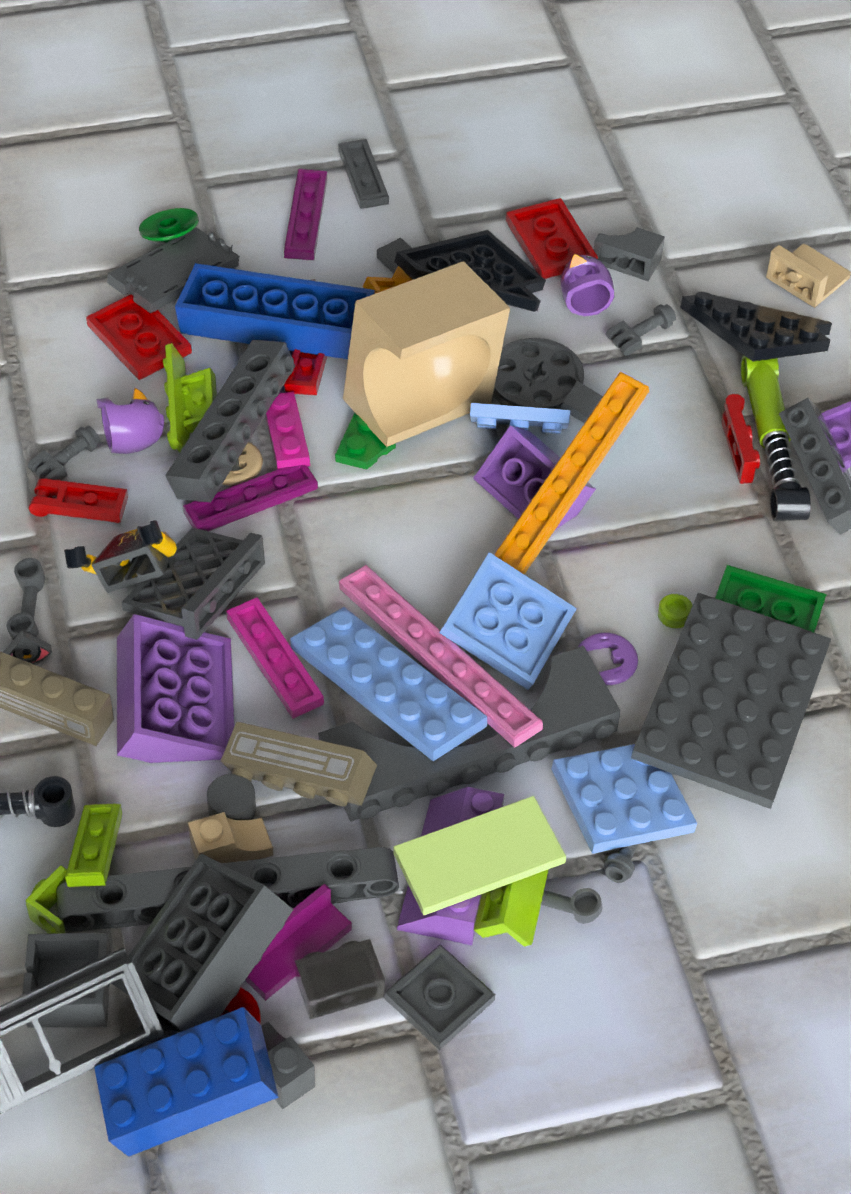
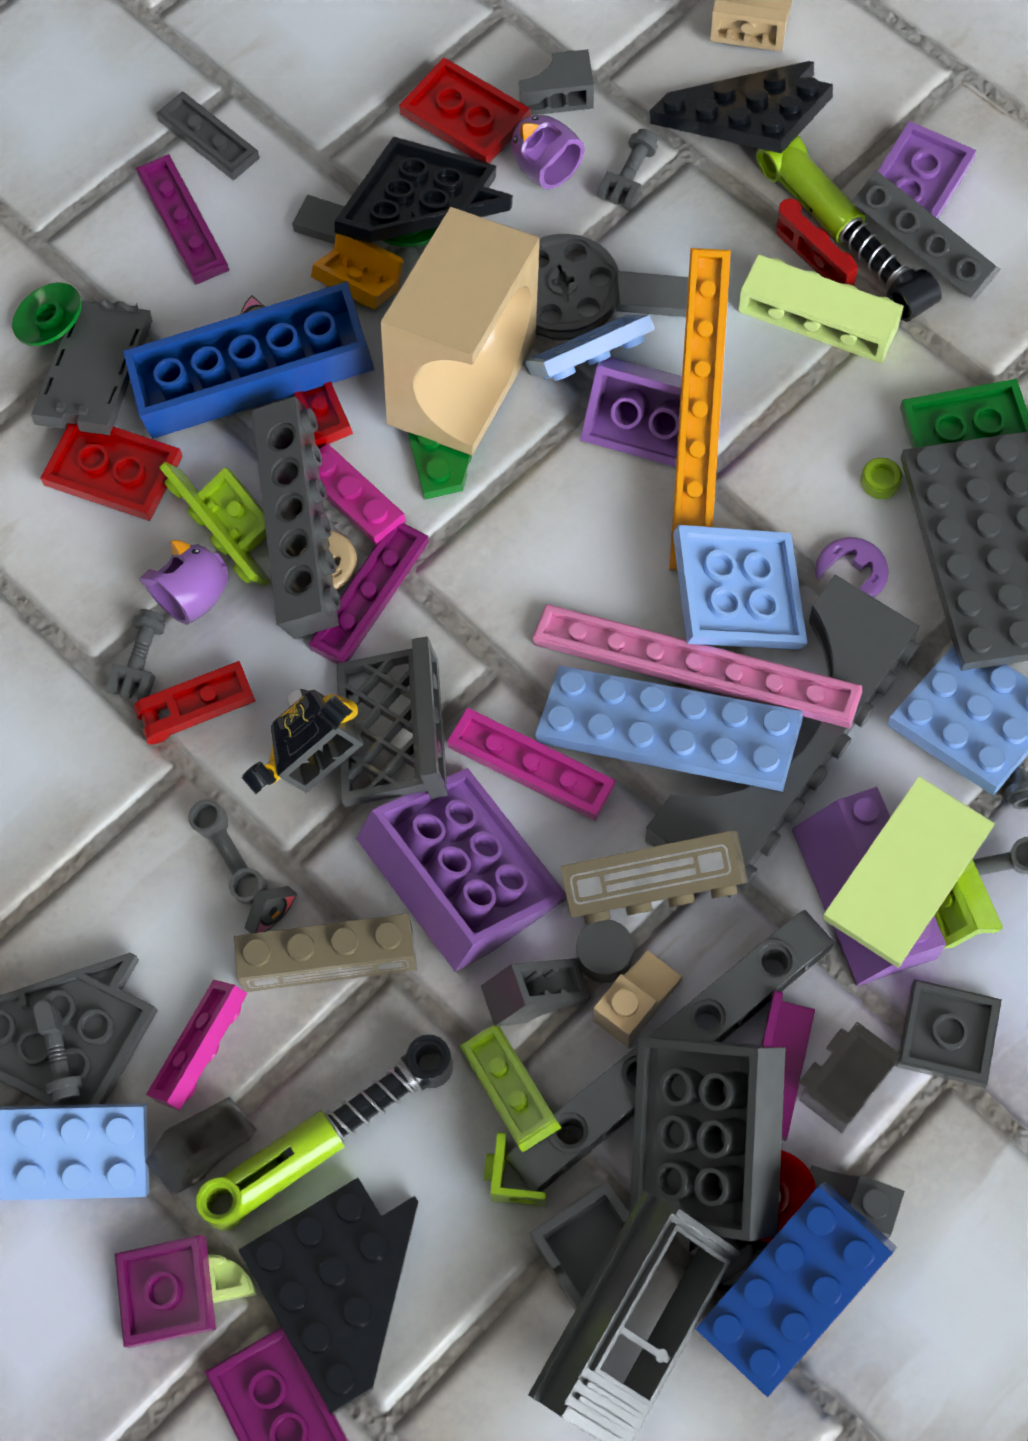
camera: 25 degrees left, 15 degrees up
(159, 794) = (534, 989): none -> dark grey arch
(712, 479) = (820, 308): none -> yellowish green brick

